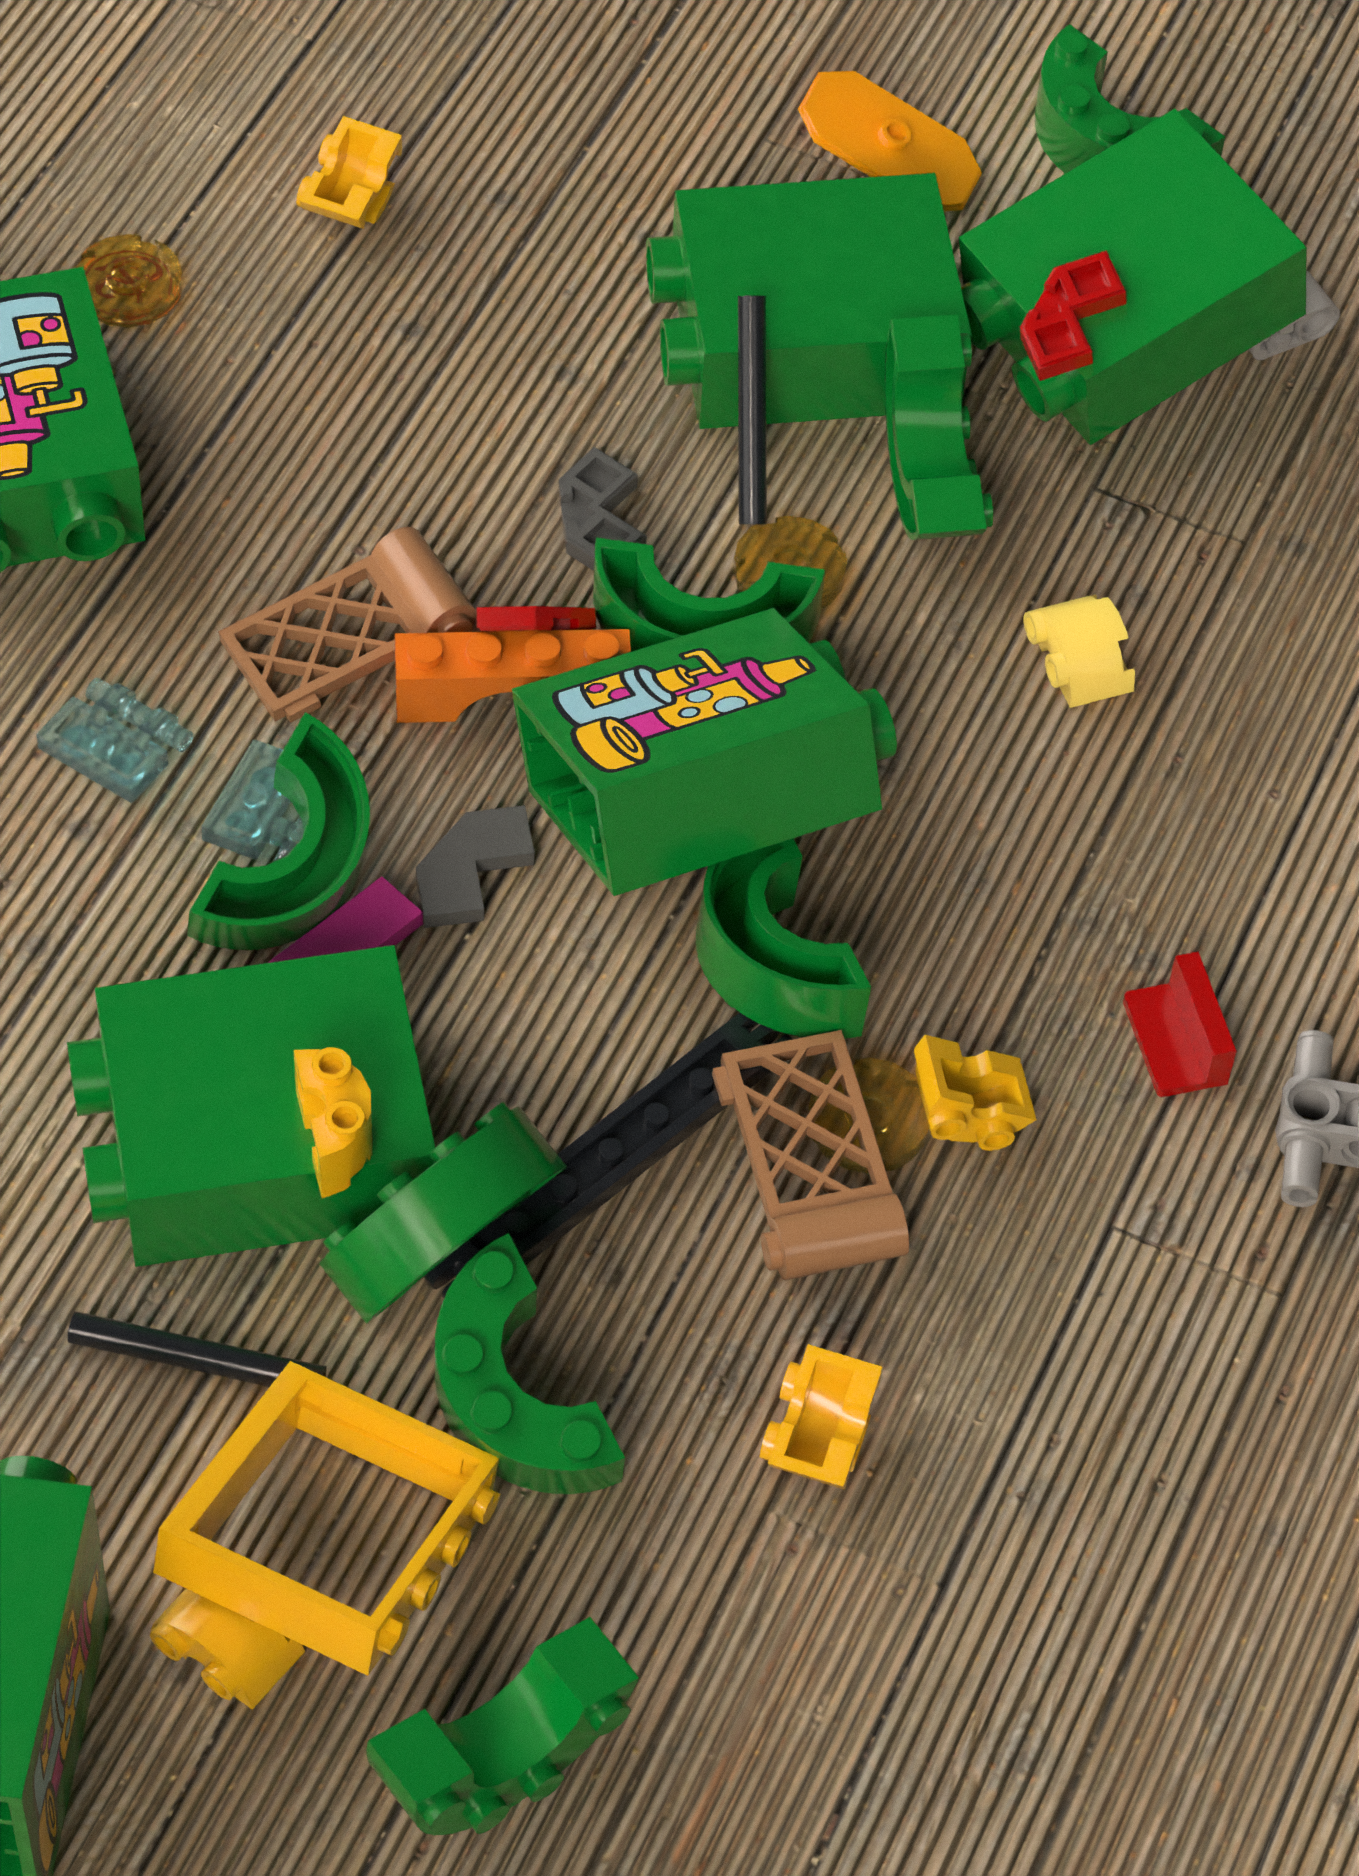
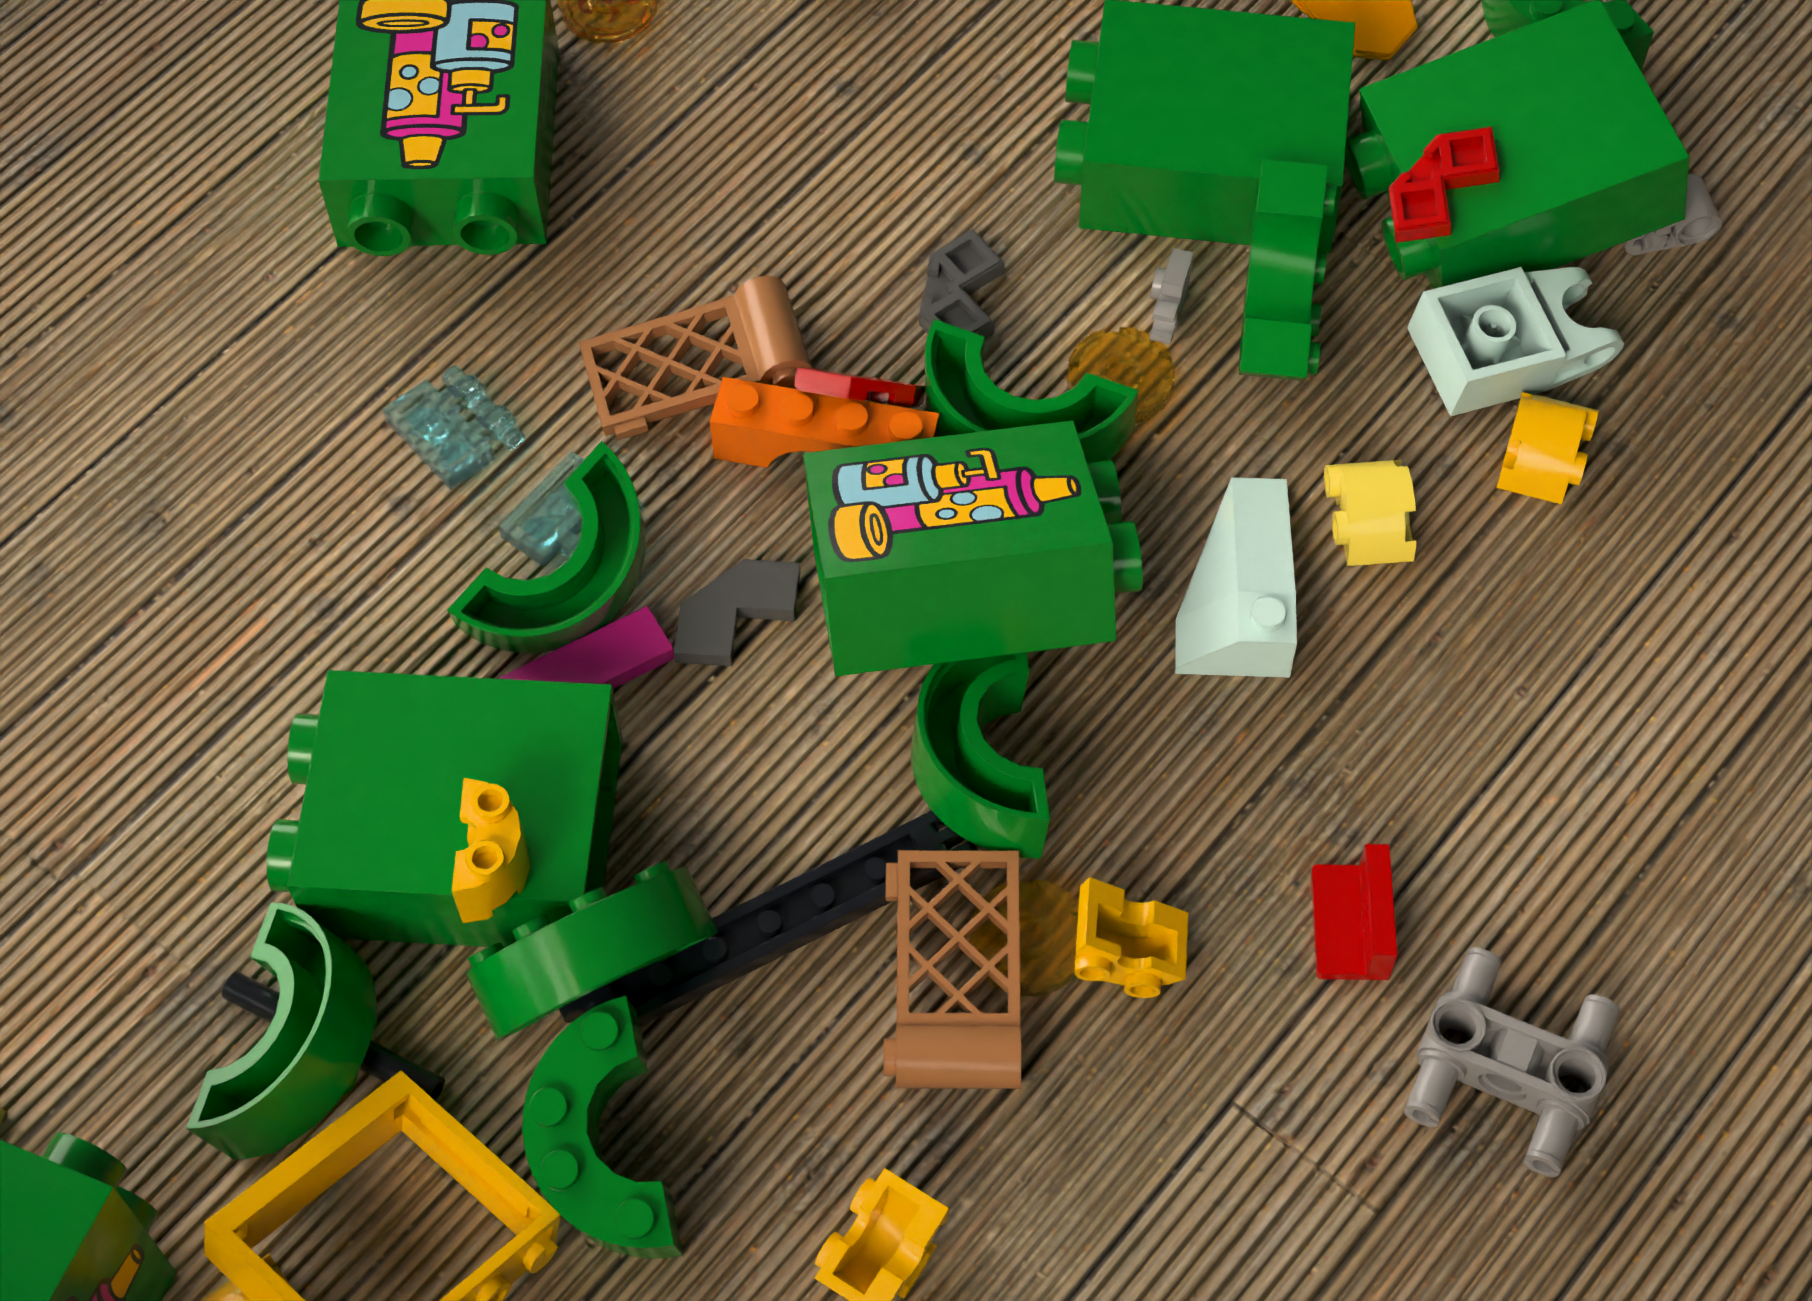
camera: 20 degrees right, 5 degrees up
(191, 1363) = (308, 1050): none -> green brick
(752, 410) = (1116, 221): black piece -> none
(817, 470) = (1170, 291): none -> light grey plate
(979, 747) = (1243, 590): none -> light aqua wedge
(1165, 457) = (1507, 336): none -> light aqua brick
(1232, 557) = (1544, 447): none -> yellow cylinder

